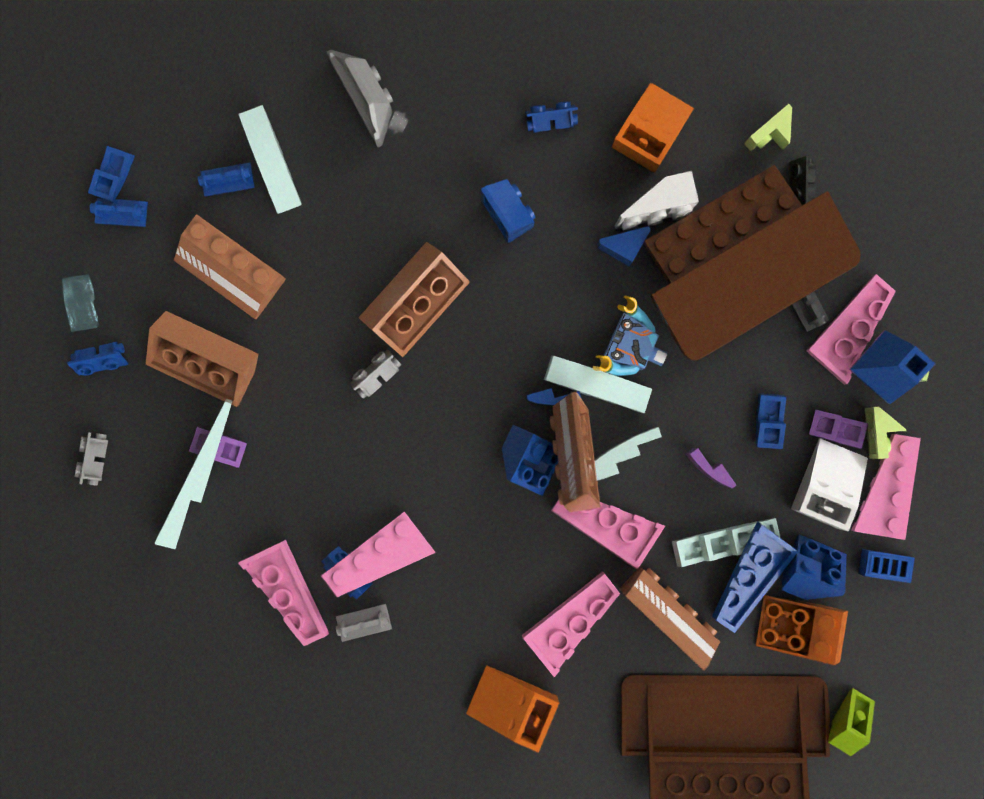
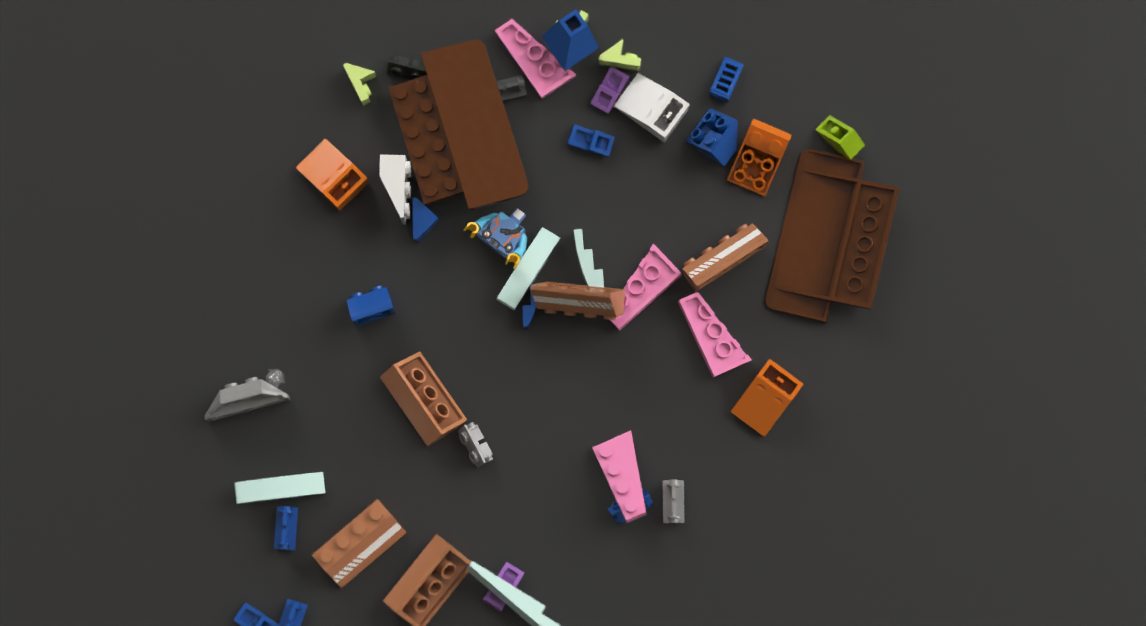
camera: 80 degrees left, 5 degrees down
(282, 582) = (628, 558): bright pink wing -> none
(528, 460) = (574, 337): blue slope -> none
(561, 114) = (300, 260): blue hinge -> none
(716, 472) = (621, 193): medium lavender slope -> none
(717, 543) = (677, 198): light aqua slope -> none
(753, 576) = (706, 182): wing -> none
(890, 495) = (674, 64): bright pink wing -> none

